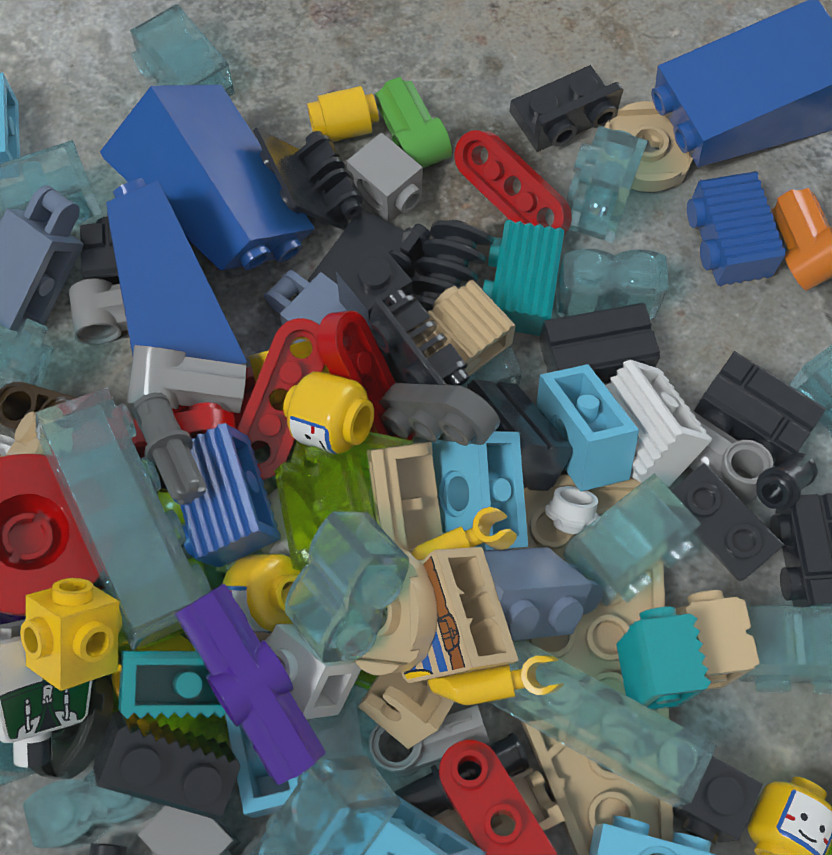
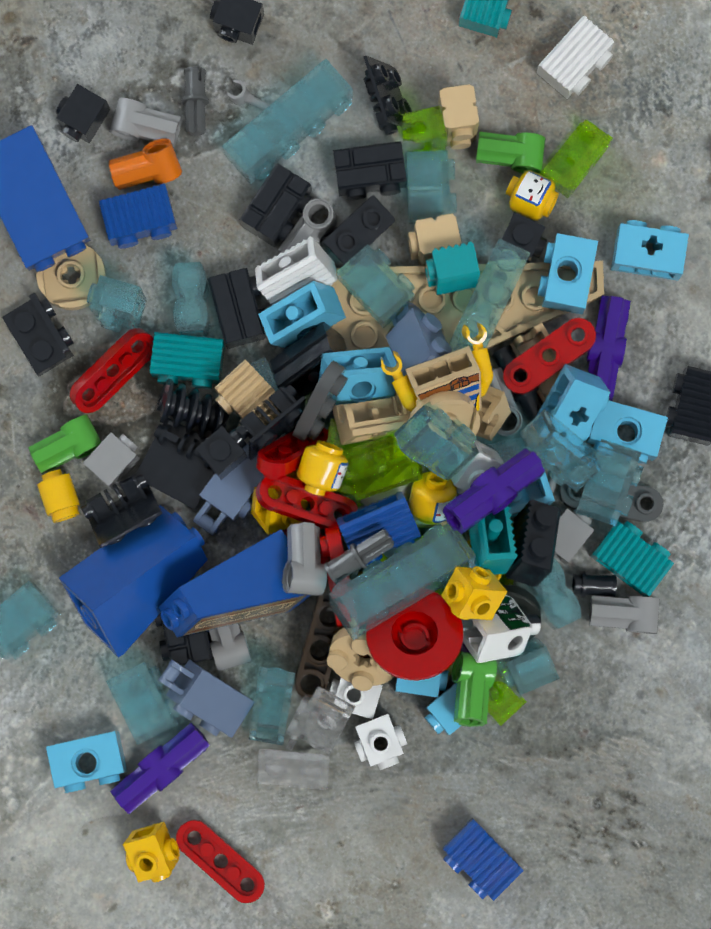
camera: 90 degrees left, 15 degrees up
(572, 509) = (357, 321): white plate -> none
(782, 485) = (335, 194): black pin -> none

